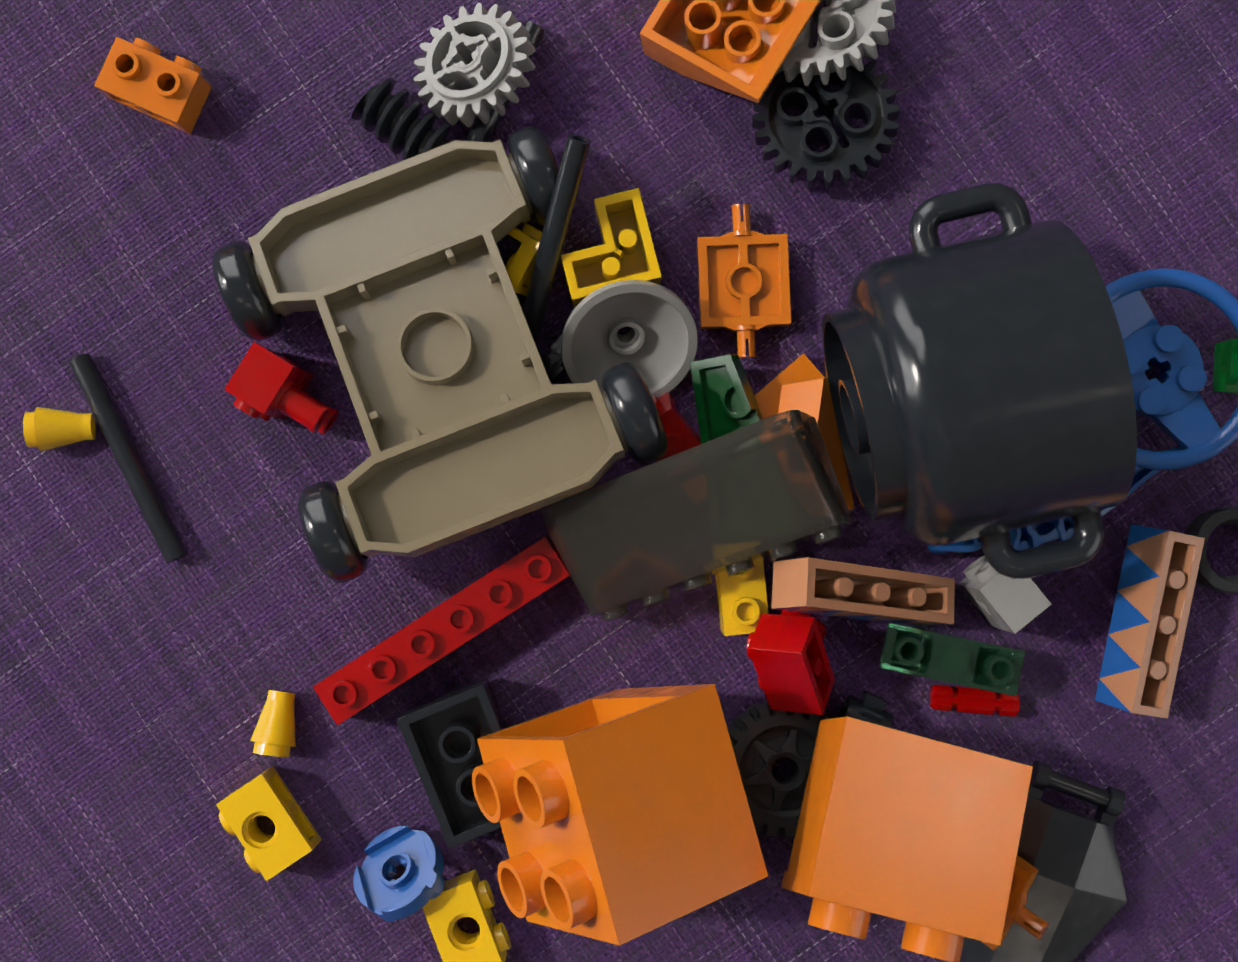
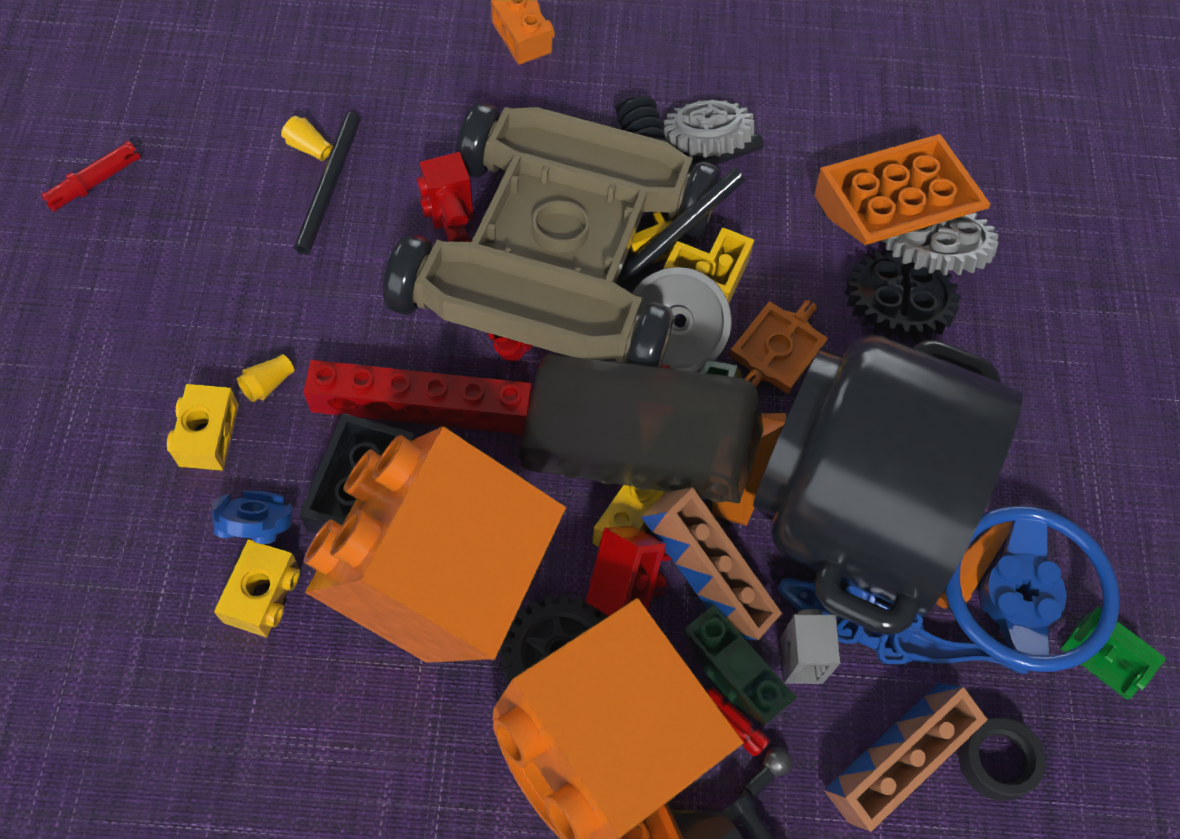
camera: 35 degrees right, 25 degrees down
(1038, 709) = (775, 764): none -> piece

